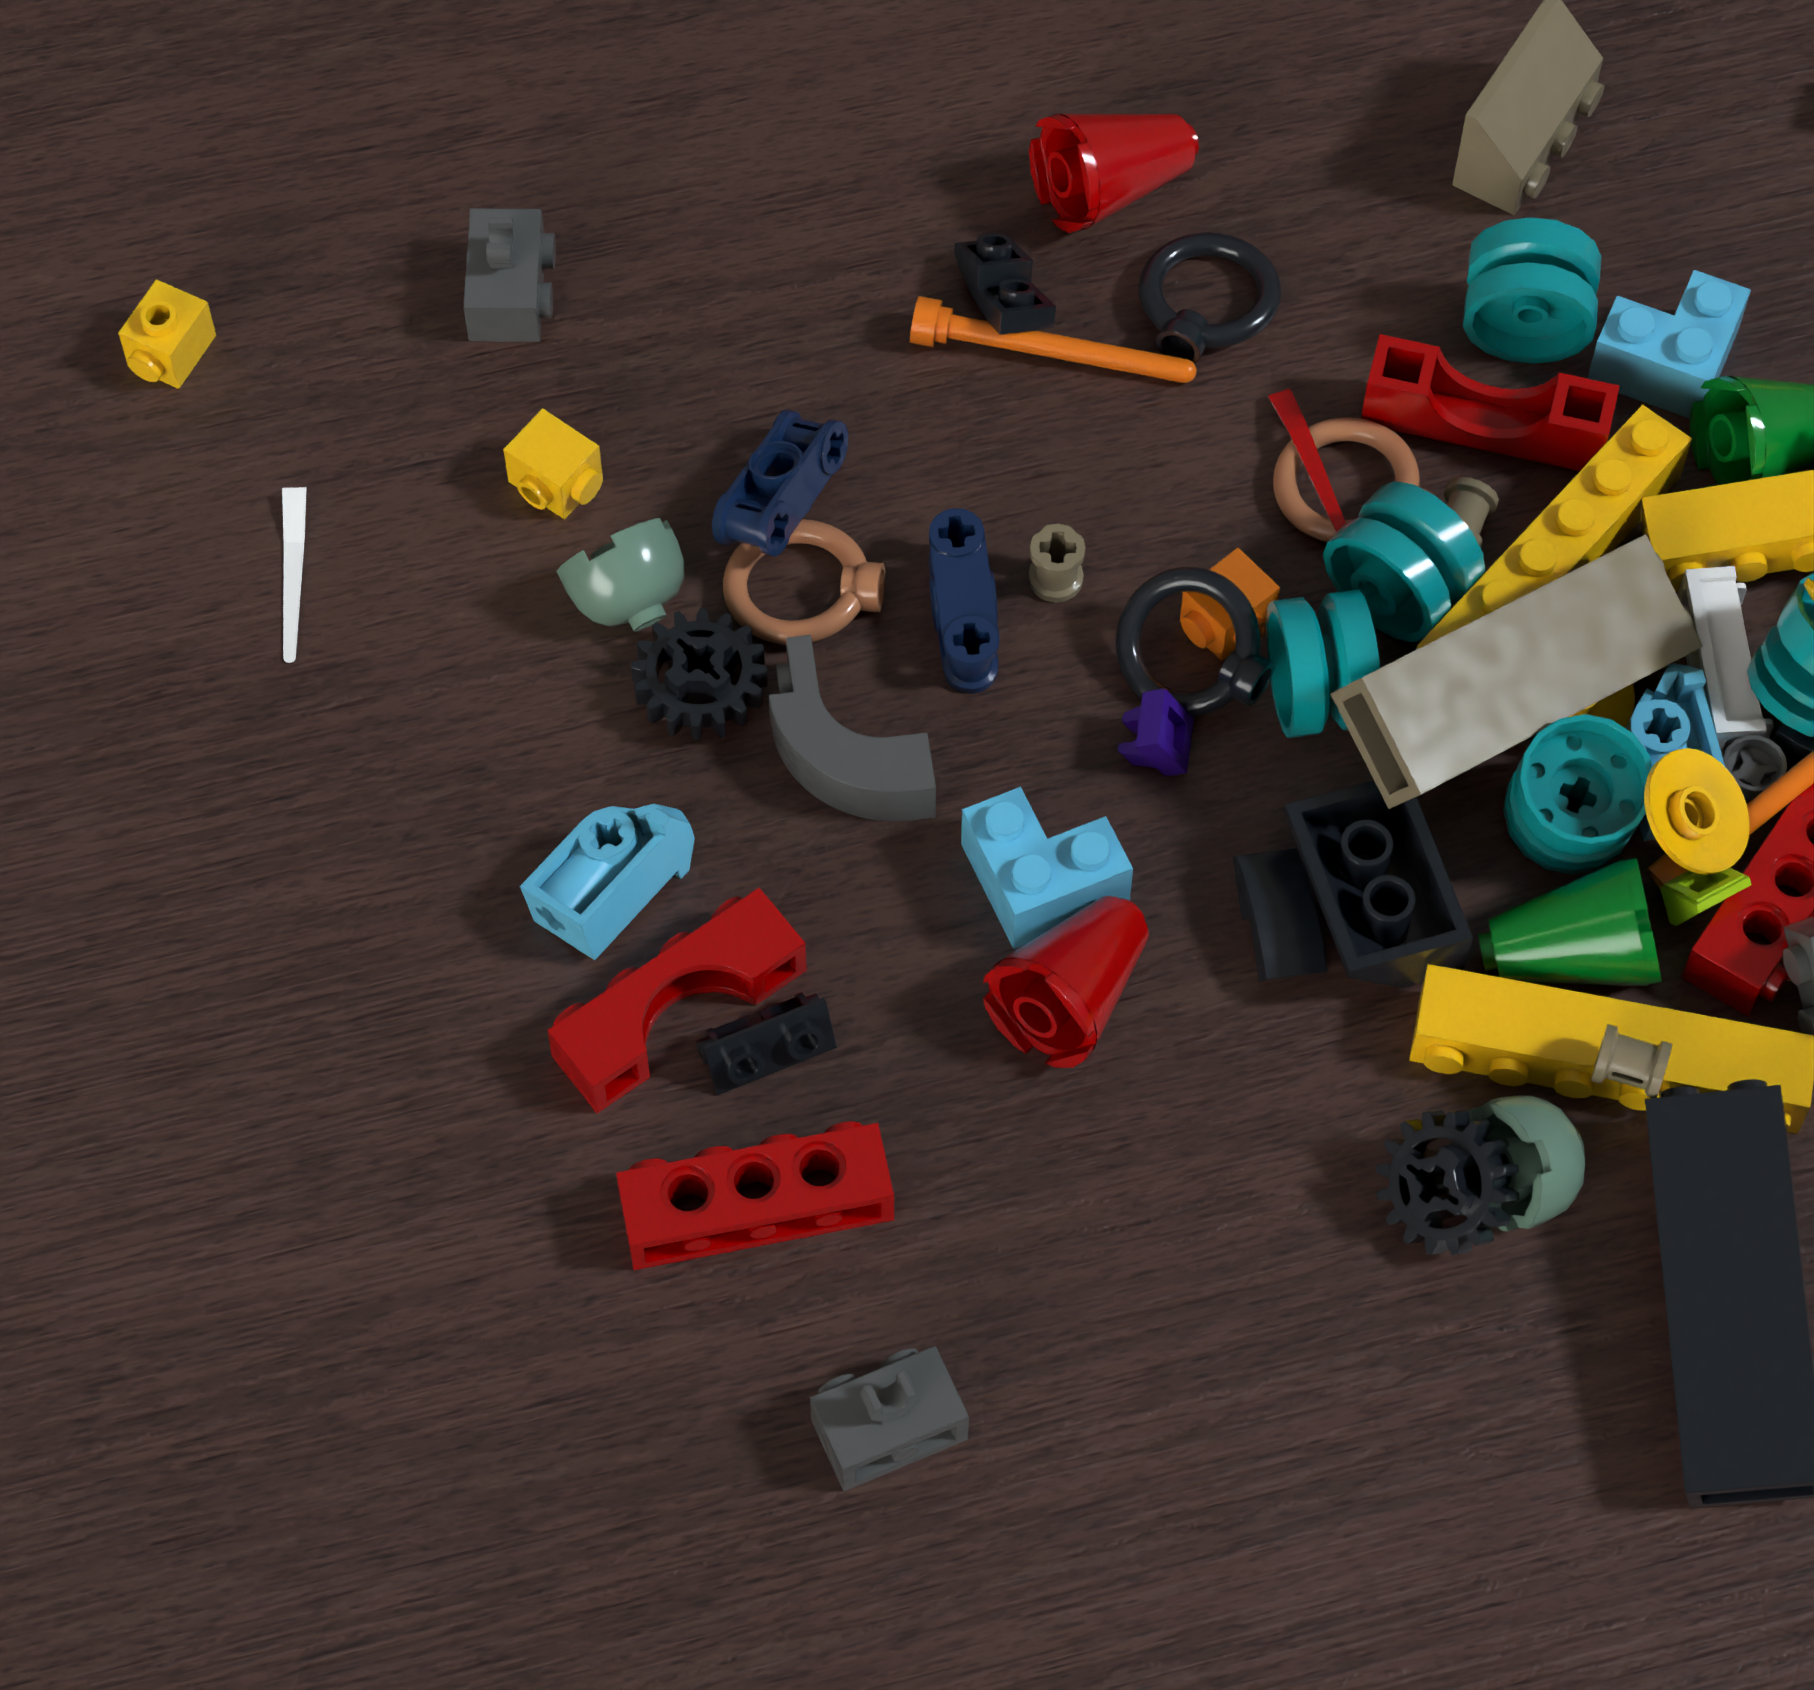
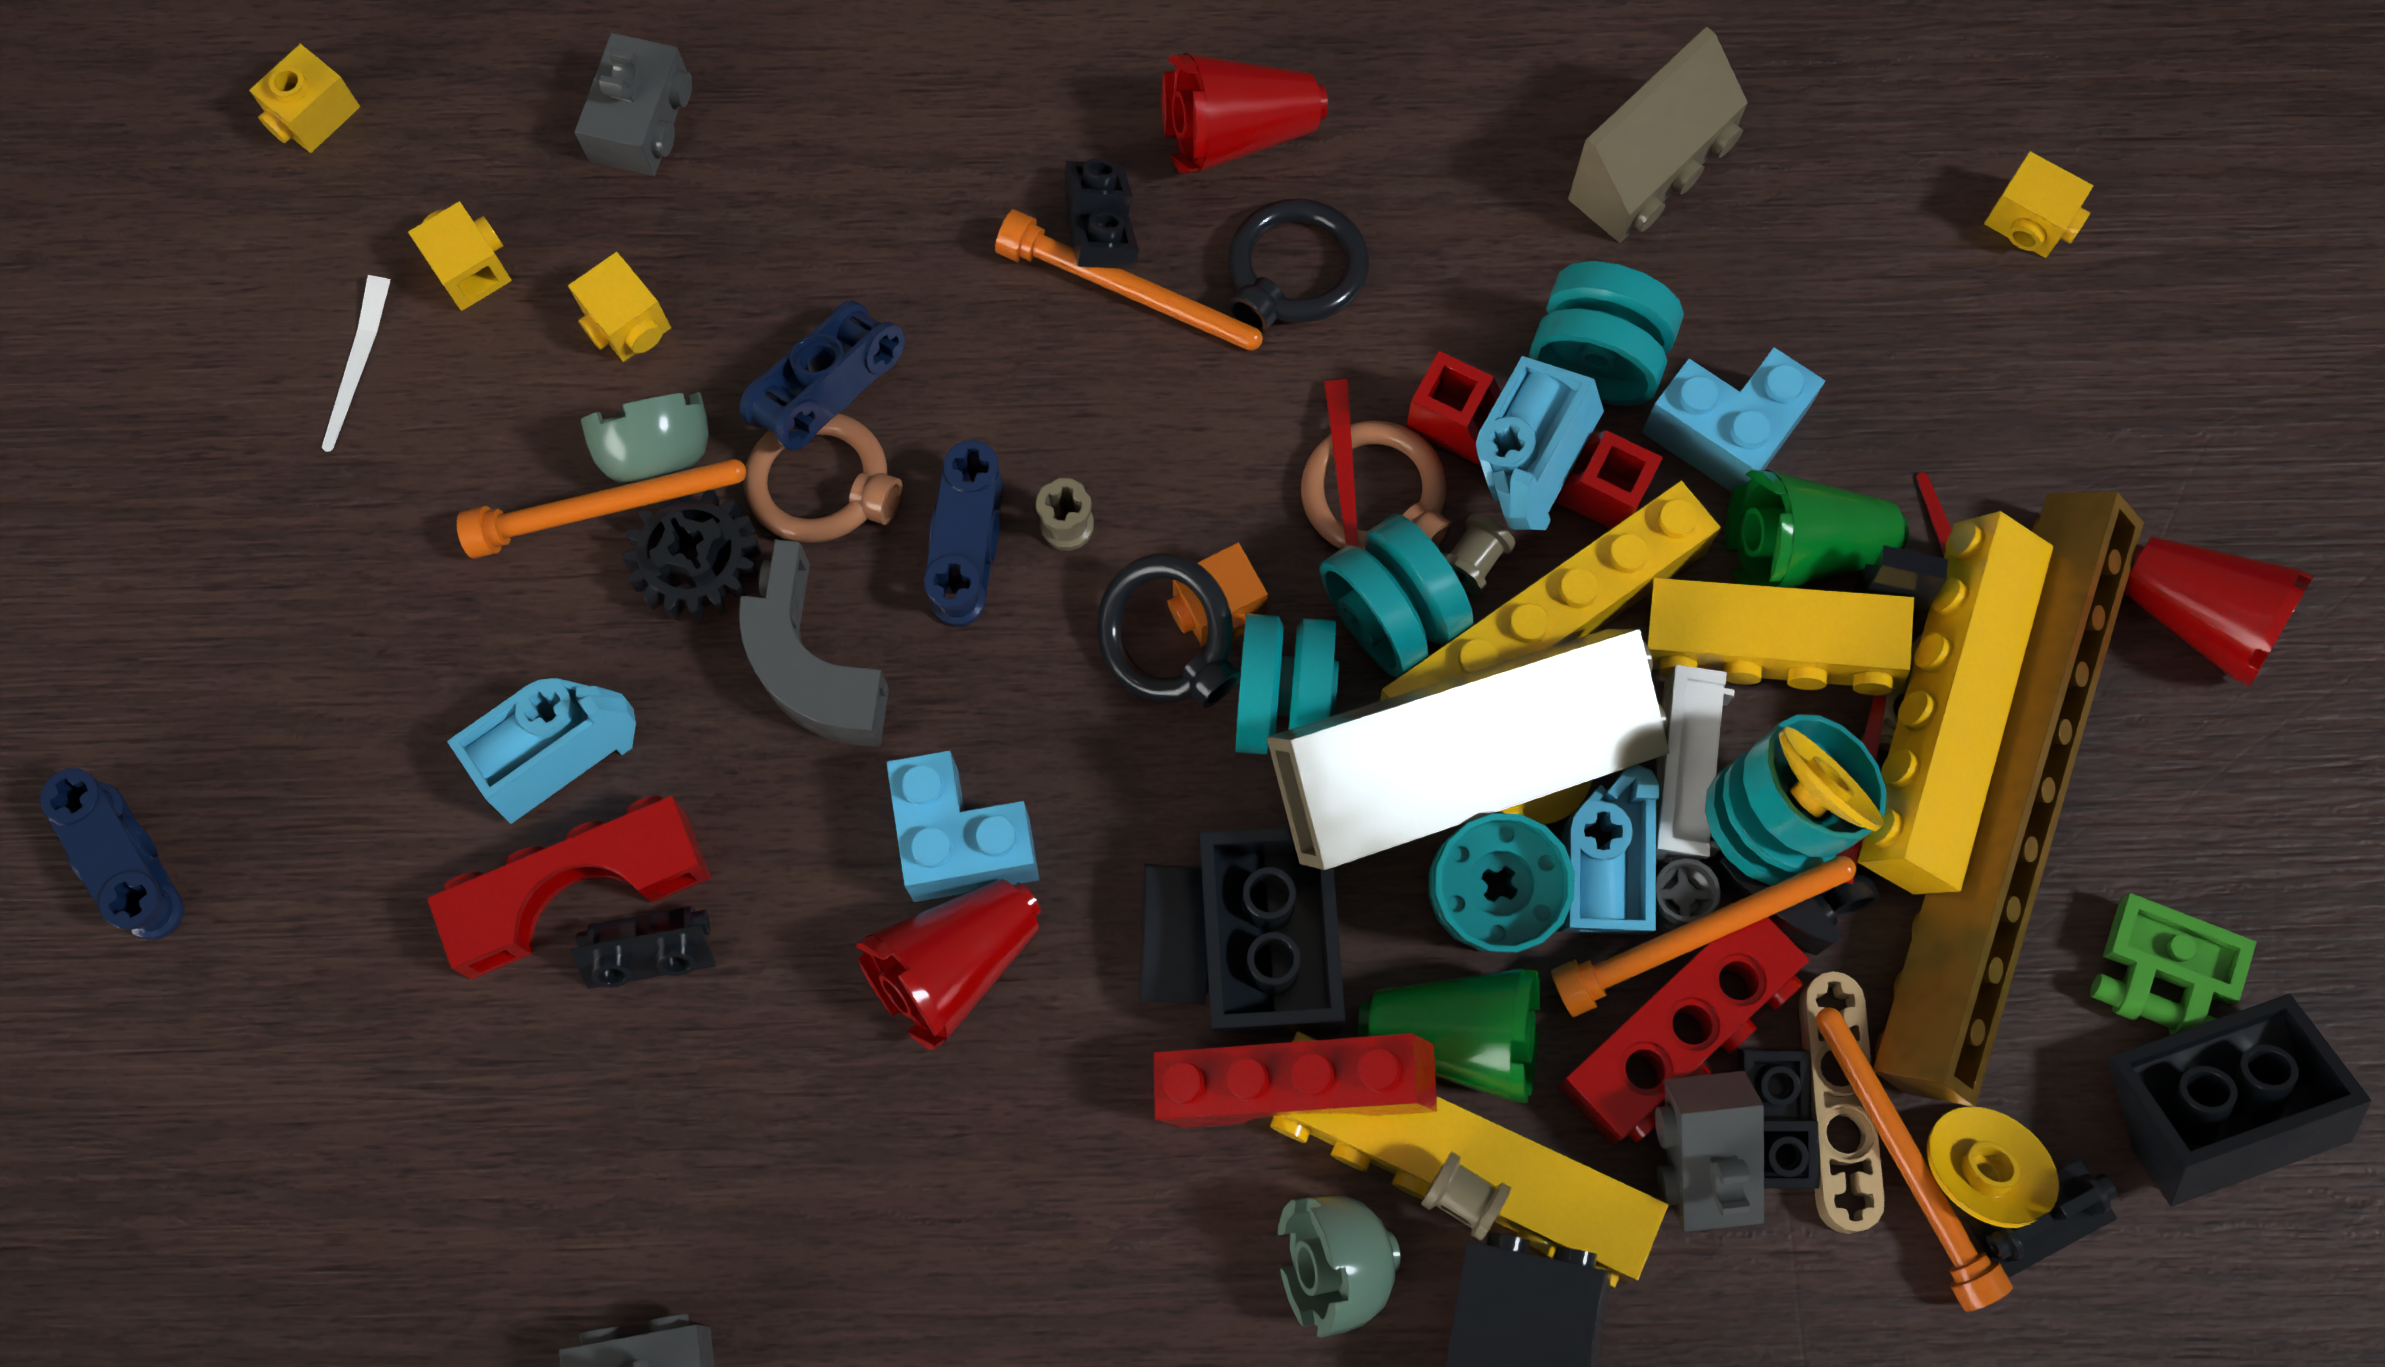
camera: 15 degrees right, 10 degrees up
(206, 1068) = (112, 854): none -> dark blue piece
(376, 448) = (461, 254): none -> yellow brick
(489, 693) = (487, 530): none -> orange piece
(732, 1222) = (477, 1094): red brick -> none
(1161, 732) = (1114, 715): dark purple tile -> none
(1472, 1175) = (1251, 1270): black gear -> none
(1496, 393) = (1536, 439): none -> medium azure piece
(1496, 977) = (1295, 1078): none -> red arch
(1696, 811) = (1627, 941): yellow dish -> none
(1697, 892) = (1596, 1016): lime slope -> none

